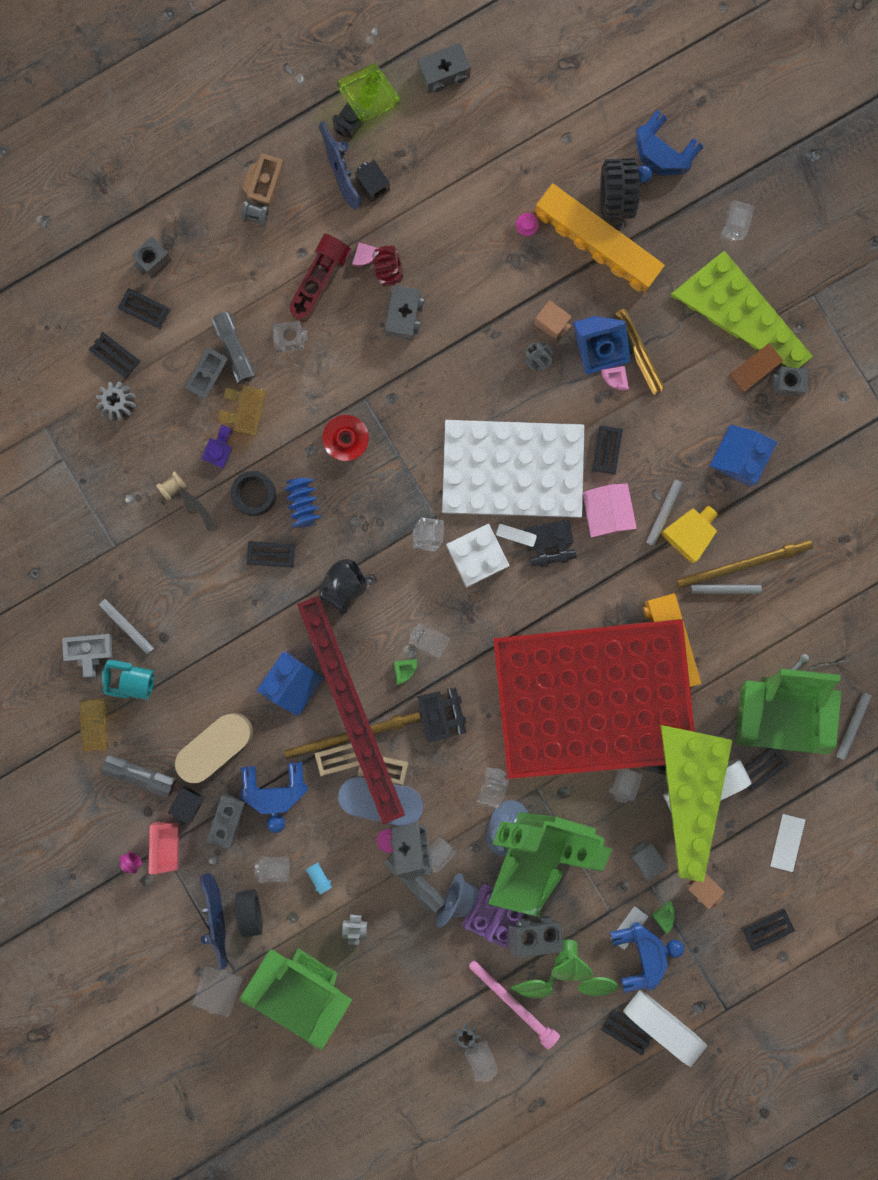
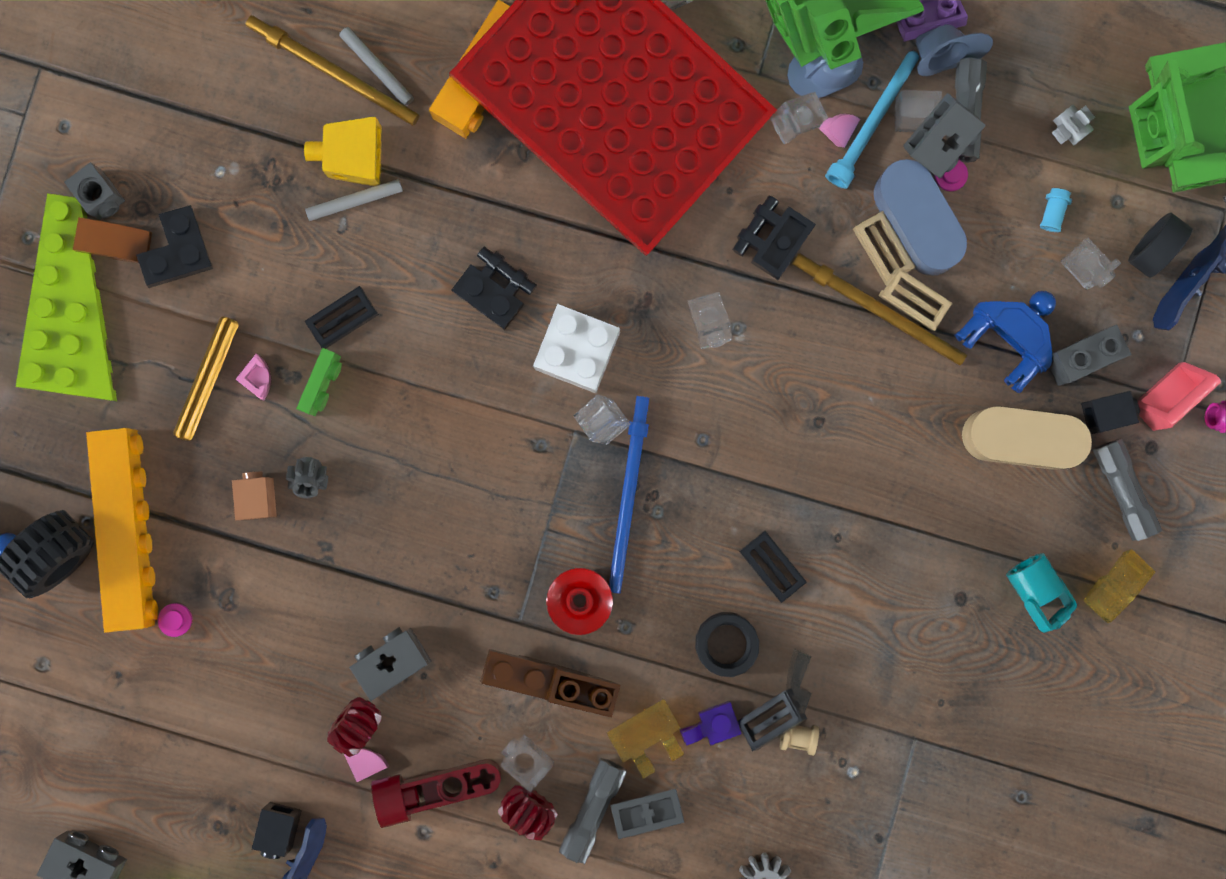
camera: 125 degrees left, 0 degrees up
(87, 651) = (1051, 663): light grey hinge -> none
(127, 627) = (987, 647): light grey bar -> none
(190, 494) = (792, 708): none -> black tile
(263, 313) = (527, 813): none -> dark red gear
(290, 683) = (887, 421): blue slope -> none
(302, 502) = (688, 583): blue piece -> none
(318, 385) = (550, 682): none -> reddish brown slope
(343, 583) = (735, 461): black piece -> none
(351, 710) = (859, 330): dark red plate -> none
(404, 670) = (762, 317): bright green tile -> none
(406, 549) = (637, 430): none -> blue bar
(443, 783) = (842, 173): none -> medium azure piece
(467, 804) = (840, 128): none -> bright pink tile
(513, 468) = (450, 397): white plate -> none
(516, 535) = (517, 329): white sticker -> none
(586, 416) = (314, 395): none -> bright green plate
(601, 343) = (232, 424): blue slope -> none
(609, 510) = (404, 258): bright pink slope -> none
(715, 397) = (184, 254): none -> black plate
(743, 454) = (217, 171): blue slope -> none

